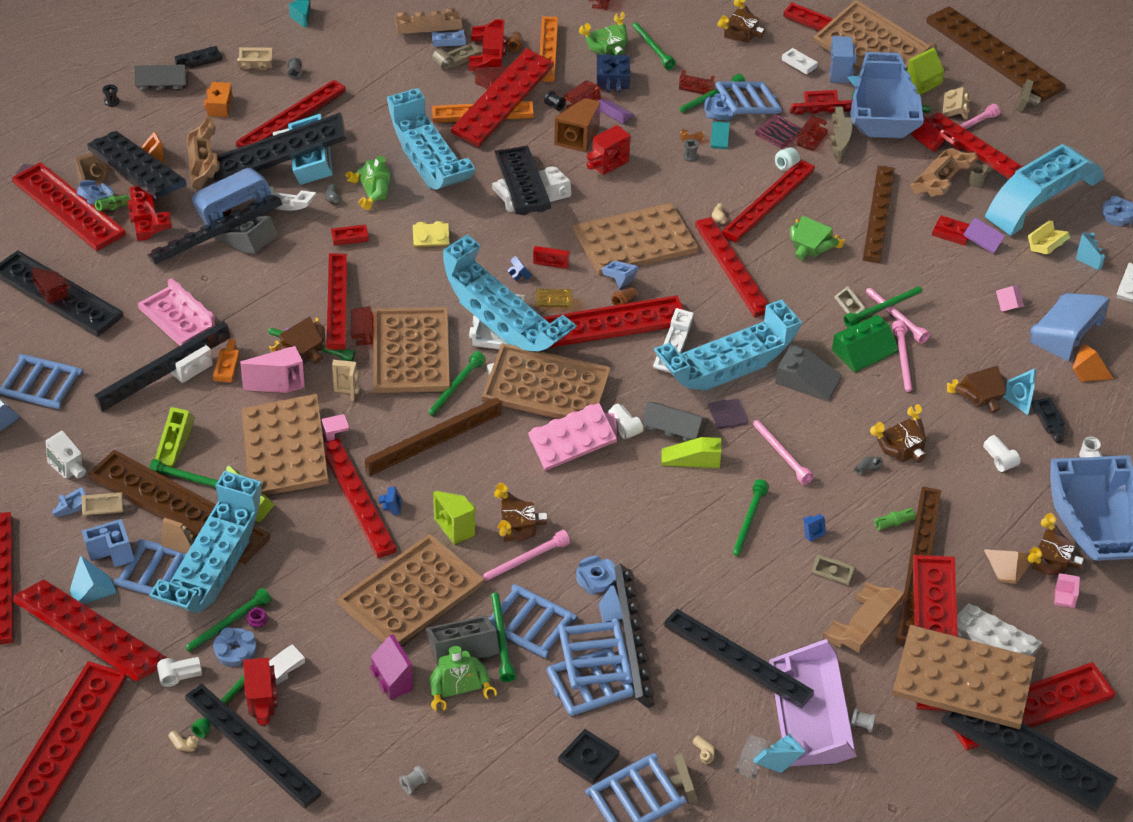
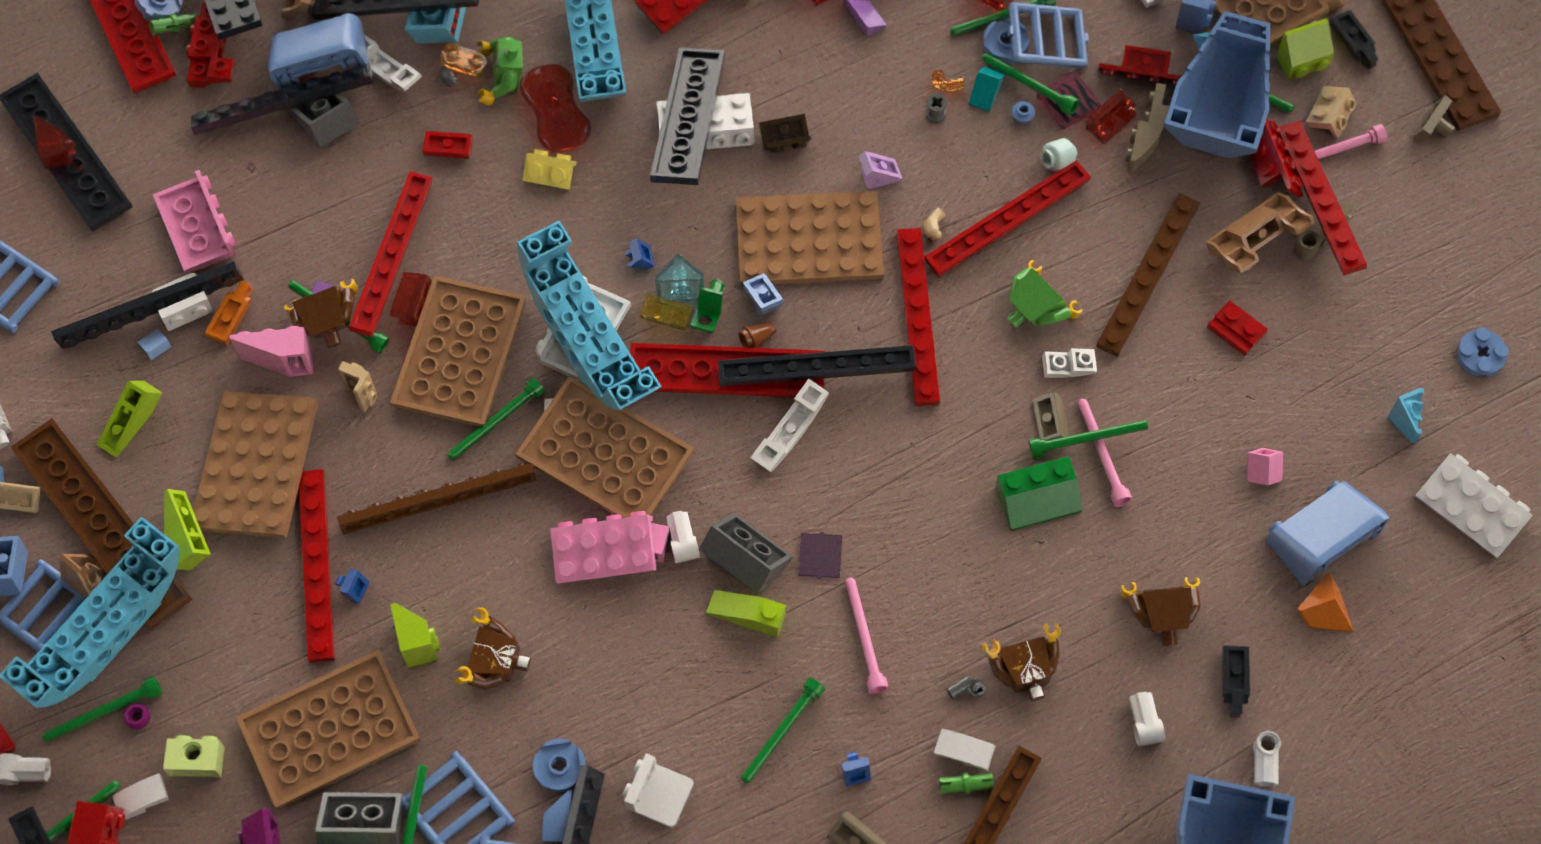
camera: 20 degrees right, 20 degrees up
(159, 467) = (95, 457): green piece -> none
(175, 392) = (154, 344): none -> light blue slope
(231, 637) = (93, 737): medium blue plate -> none
(314, 631) = (206, 765): none -> yellowish green brick
(334, 425) = (321, 453): bright pink panel -> none
(340, 184) = (463, 59): none -> clear orange plate
(417, 195) = (559, 120): none -> clear red plate
(551, 257) = (686, 245): red plate -> none
(559, 272) = (679, 280): none -> clear light blue slope
(560, 539) = (533, 700): bright pink piece -> none
(578, 125) = (800, 35): dark orange slope -> none
(583, 287) = (709, 306): none -> green bracket
(591, 183) = (784, 132): none -> dark brown bracket
(610, 150) = (822, 88): red hinge -> none
(666, 191) = (878, 170): none -> lavender slope
(676, 573) = (657, 792): none -> white bracket
(681, 300) = (816, 365): none -> black plate
(733, 354) = (851, 468): medium azure slope -> none
(751, 143) = (1023, 118): none -> medium blue plate
(780, 130) = (1067, 103): none -> green piece
(807, 373) = (945, 522): dark grey slope -> none
(853, 270) = (1071, 364): none -> white slope
(884, 497) = (964, 749): none -> white slope
(899, 329) = (1095, 479): bright pink piece -> none
(955, 65) = (1355, 38): none -> black hinge
(984, 235) = (1272, 352): medium lavender slope -> none
(1020, 390) = (1214, 624): medium azure slope -> none
(1038, 183) = (1383, 291): medium azure slope -> none
(1046, 238) = (1358, 378): light yellow bracket -> none

